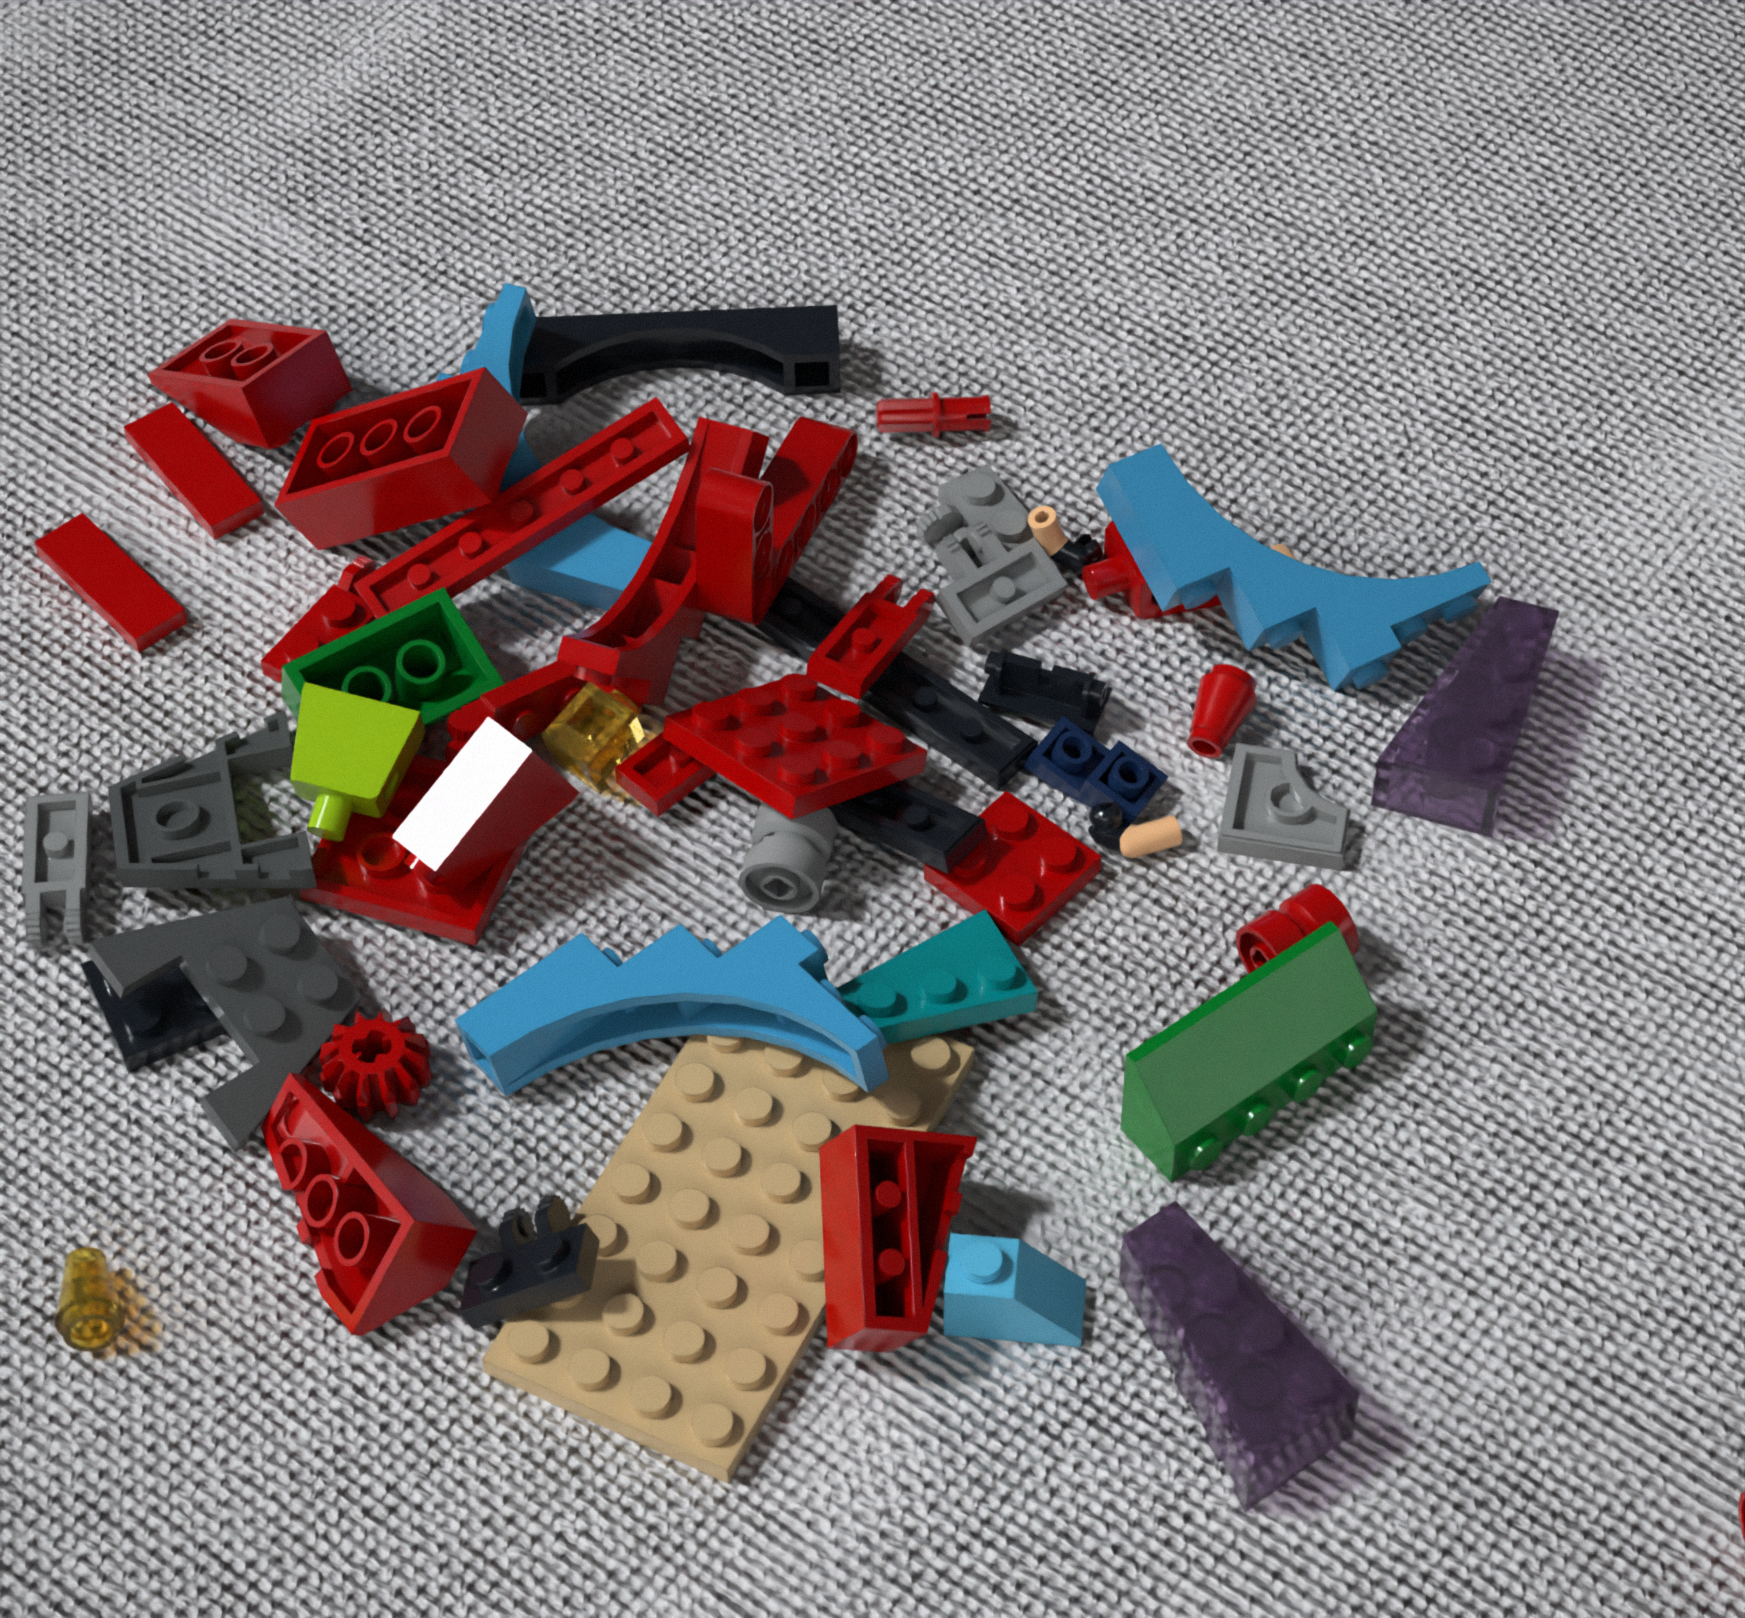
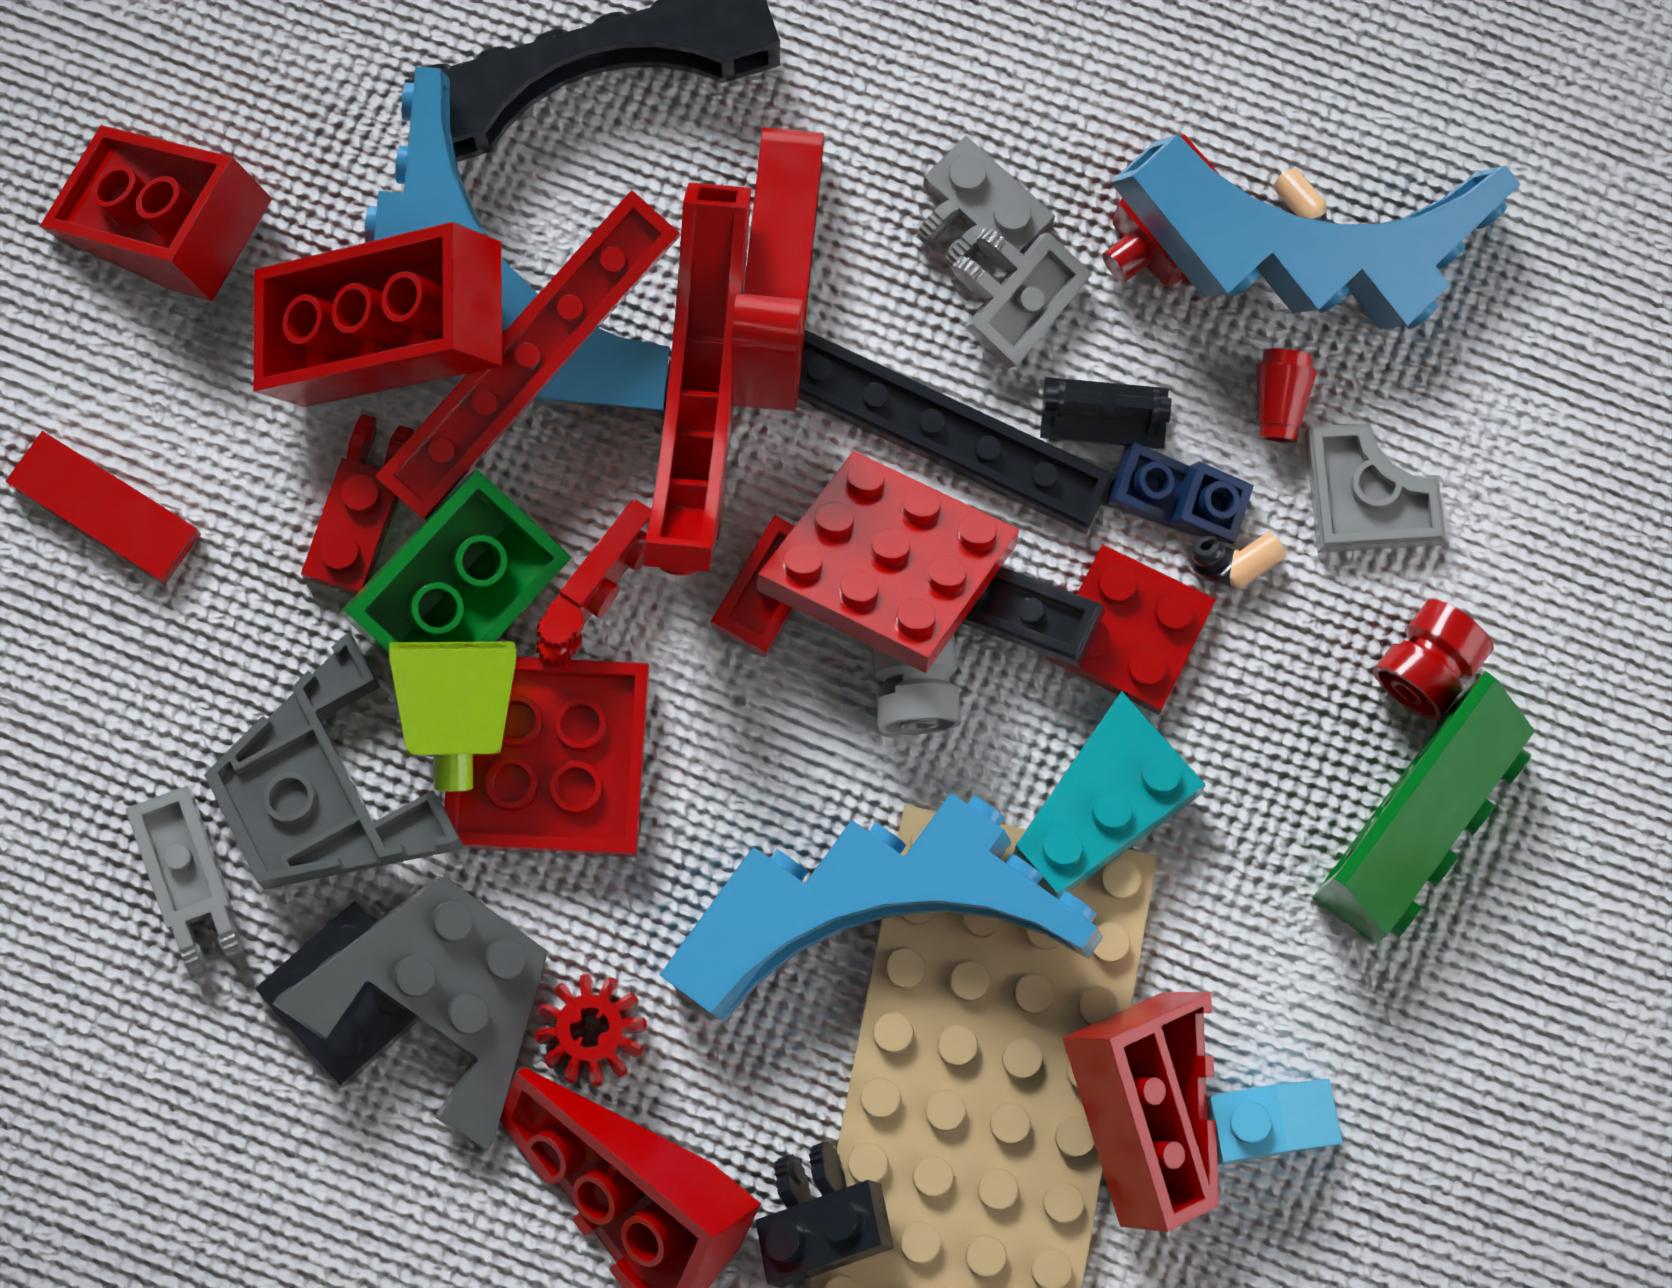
camera: 20 degrees left, 25 degrees up
(193, 470) = (136, 340): red tile -> none
(481, 808) = (607, 728): slope -> none
(594, 735) = (662, 606): clear yellow brick -> none
(869, 638) = (919, 405): red hinge -> none
(933, 414) = (892, 82): red axle -> none
(1059, 548) = (1068, 228): arm -> none
(1238, 1360) = (1506, 1149): clear purple wedge -> none
(1467, 731) = (1539, 356): clear purple wedge -> none

